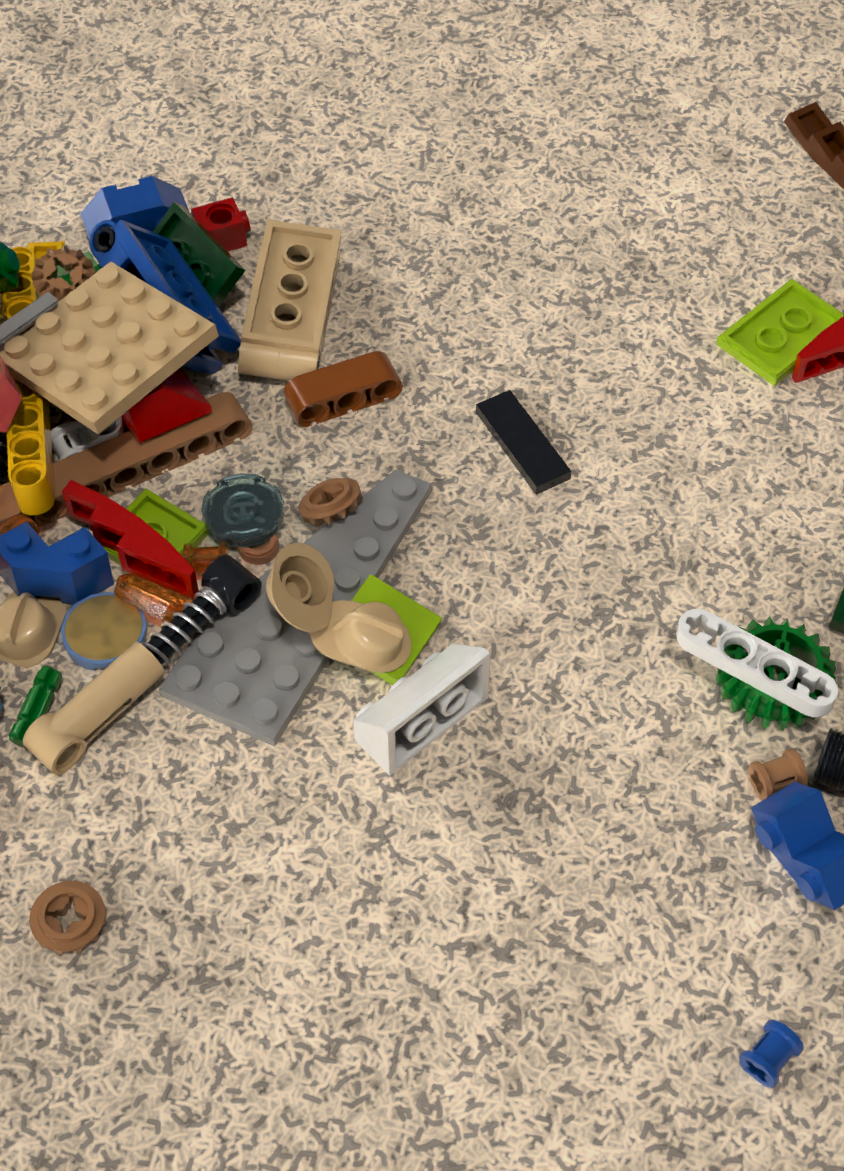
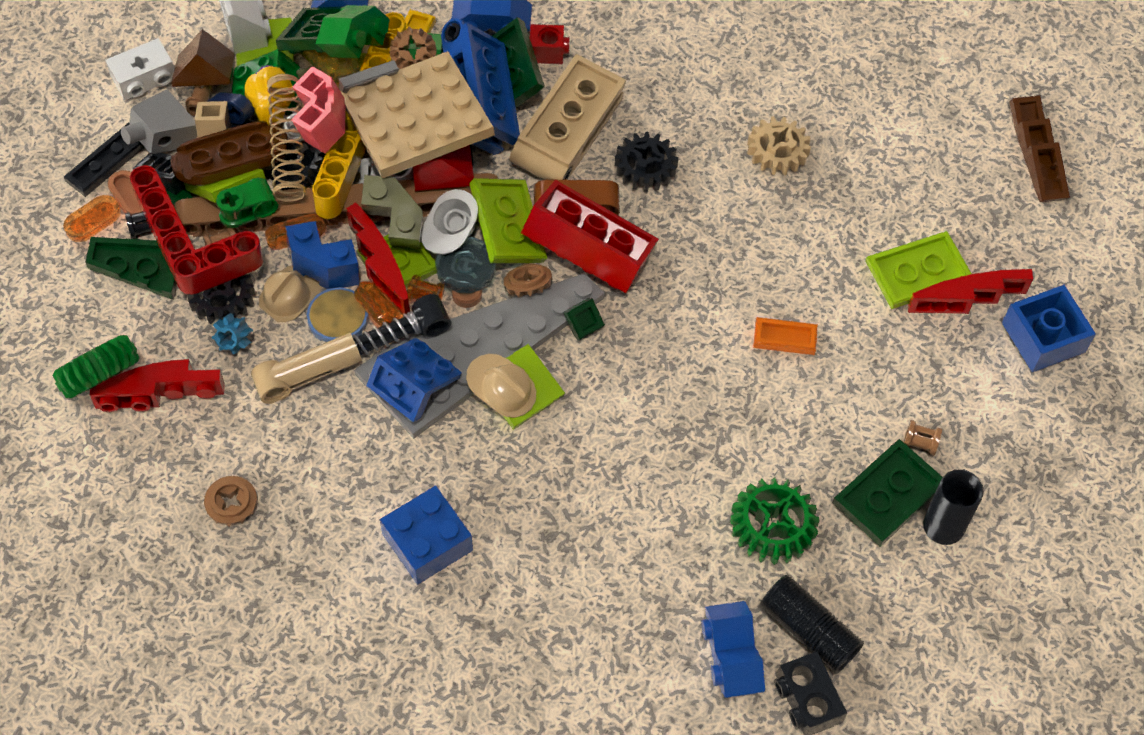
camera: 20 degrees right, 5 degrees up
(36, 702) = (272, 348): green axle -> none
(117, 460) = (390, 199): none -> olive brick
(201, 464) = (449, 222): none -> white piece
(241, 668) = (409, 377): none -> blue bracket
(272, 440) = (502, 215): none -> lime tile
(301, 587) = (473, 337): tan piece -> none
(354, 857) = (426, 534): none -> blue brick
(384, 423) = (589, 236): none -> red slope
(406, 318) = (646, 161): none -> black gear
(421, 522) = (584, 318): none -> dark green tile
(423, 705) = (520, 450): white slope -> none
(523, 442) = (685, 285): black tile -> none
(552, 249) = (778, 145): none -> tan gear
(671, 458) = (785, 336): none -> orange tile
(752, 667) = (753, 510): white beam -> none
(777, 773) = (738, 590): medium nougat bush -> none

